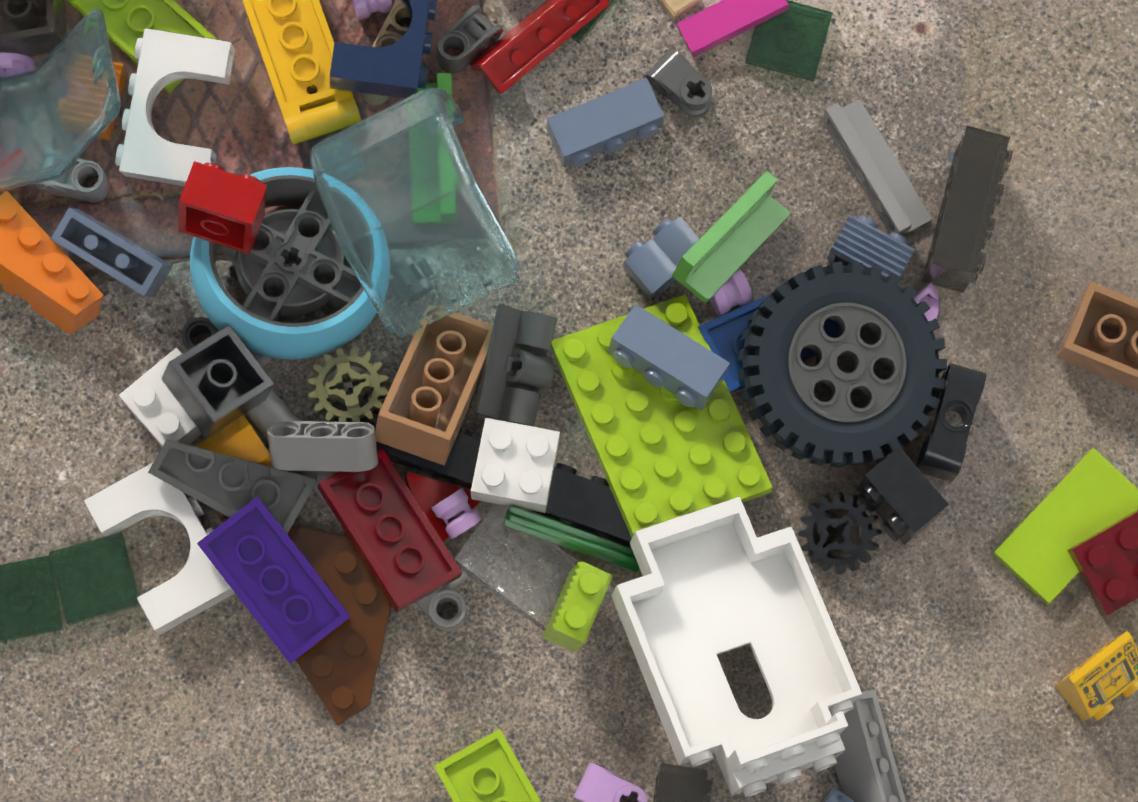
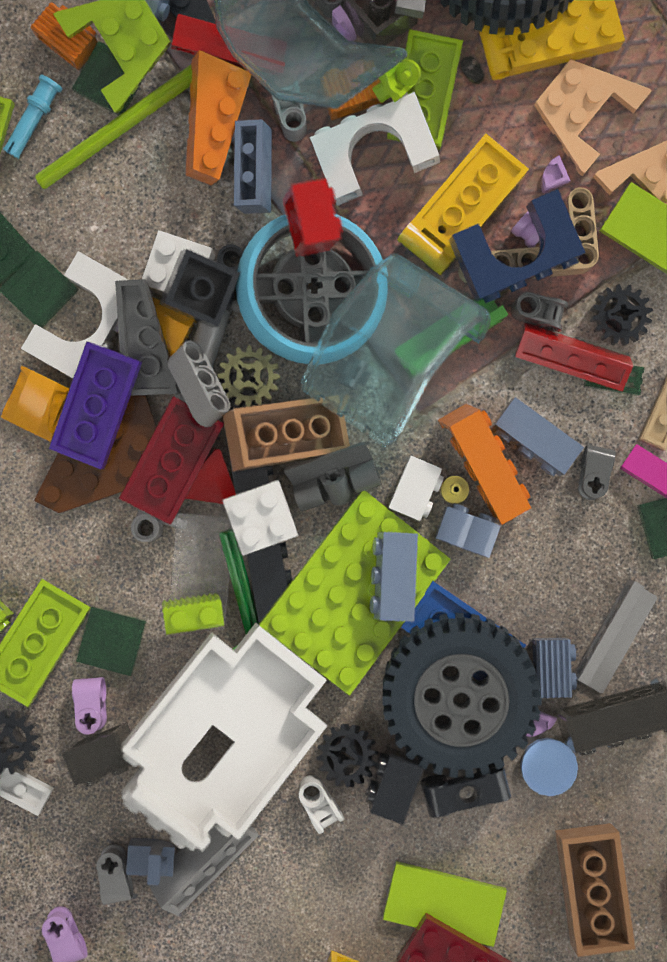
camera: 60 degrees right, 10 degrees up
(122, 38) = (397, 81): none -> lime hips
(226, 654) = (35, 403): none -> light orange slope
(456, 513) = (210, 497): lavender wheel -> none
(553, 730) = (111, 641): none -> clear green tile
(583, 286) = (415, 489): none -> white brick
(599, 191) = (486, 462): none -> orange wedge
(612, 253) = (447, 489): none -> light yellow tile
(731, 240) = (503, 571): bright green panel -> none
(732, 293) = (469, 588): lavender wheel -> none
(884, 599) = (320, 808): none -> white piece
(980, 322) = (549, 766): none -> light blue tile

